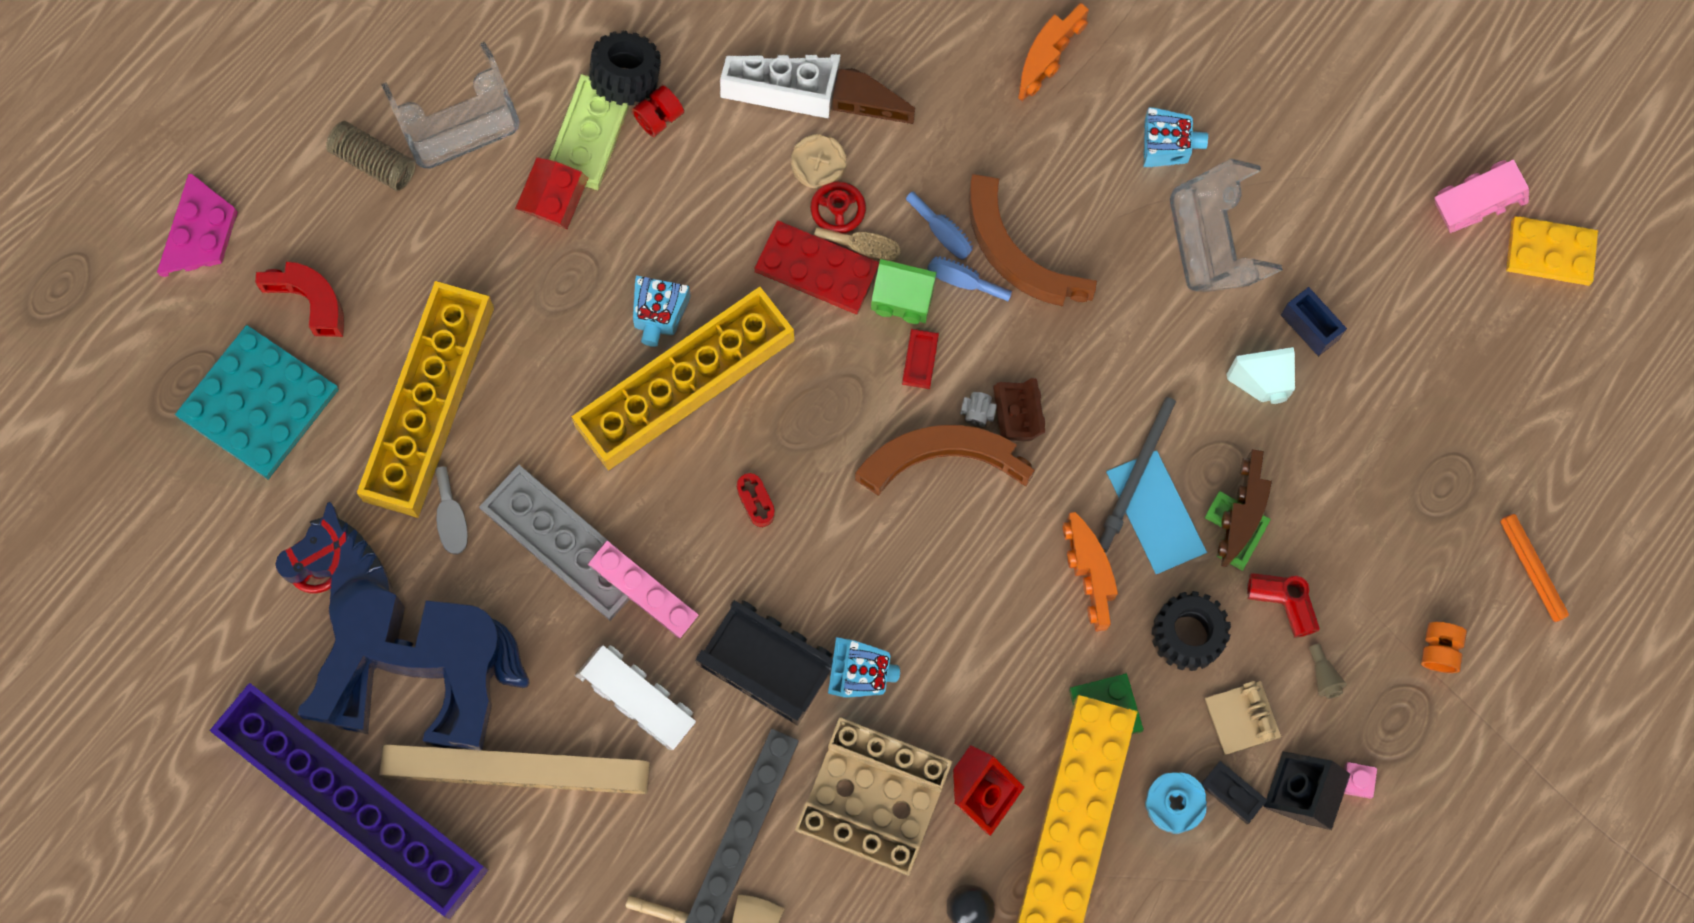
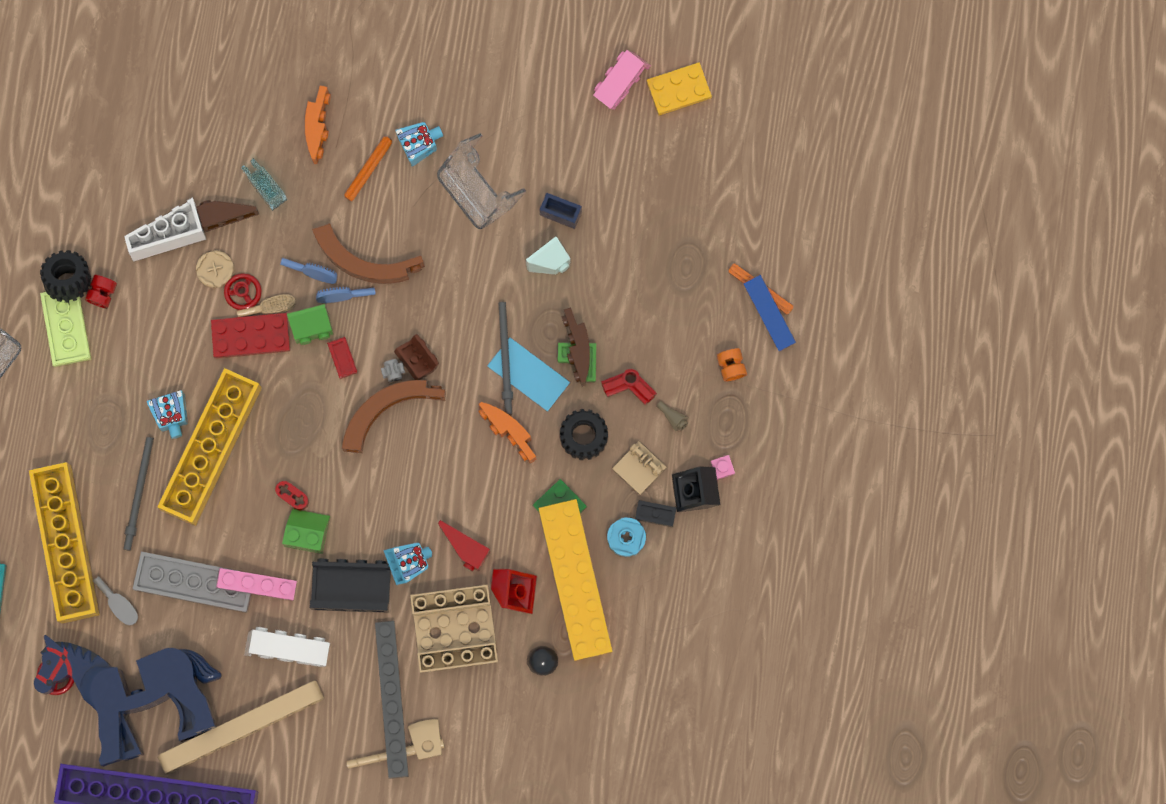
camera: 25 degrees left, 5 degrees up
(521, 431) = (131, 530): none -> dark grey bar
(552, 192) = (65, 377): red slope -> none
(747, 557) = (306, 531): none -> bright green slope
(941, 90) = (265, 185): none -> clear light blue hinge
(950, 700) = (469, 551): none -> red slope
(1085, 139) = (368, 168): none -> orange axle
(1532, 606) = (769, 313): none -> blue tile

